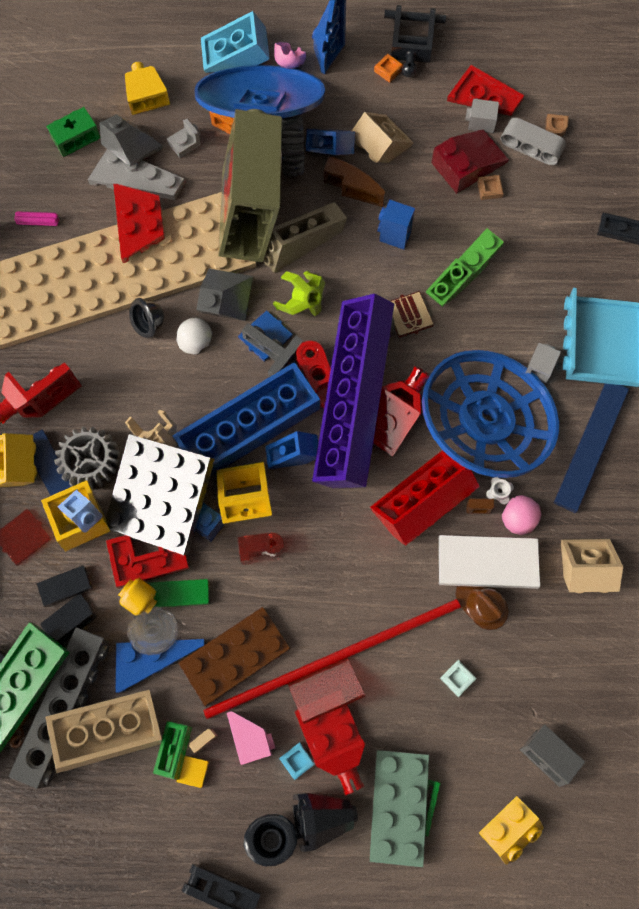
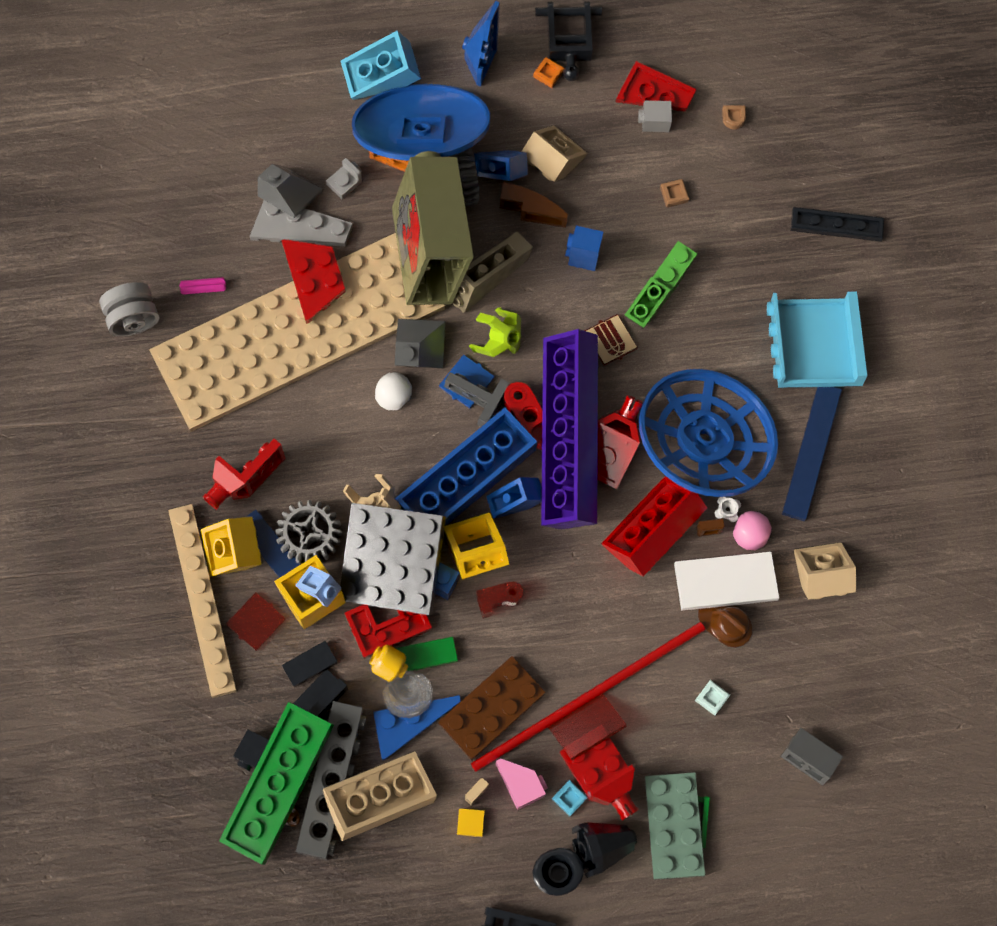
camera: 15 degrees left, 0 degrees up
(73, 131) = (224, 185): green brick -> none
(145, 89) = (292, 127): yellow torso -> none
(145, 317) = (341, 379): black hat -> none
(175, 750) = (452, 805): green tile -> none
(287, 57) = (441, 74): bright pink hair -> none
(466, 158) = (647, 165): dark red slope -> none
(512, 830) = (783, 830): yellow bracket -> none
(533, 141) = (712, 138): light grey beam -> none
(543, 361) = (753, 372): light grey brick -> none

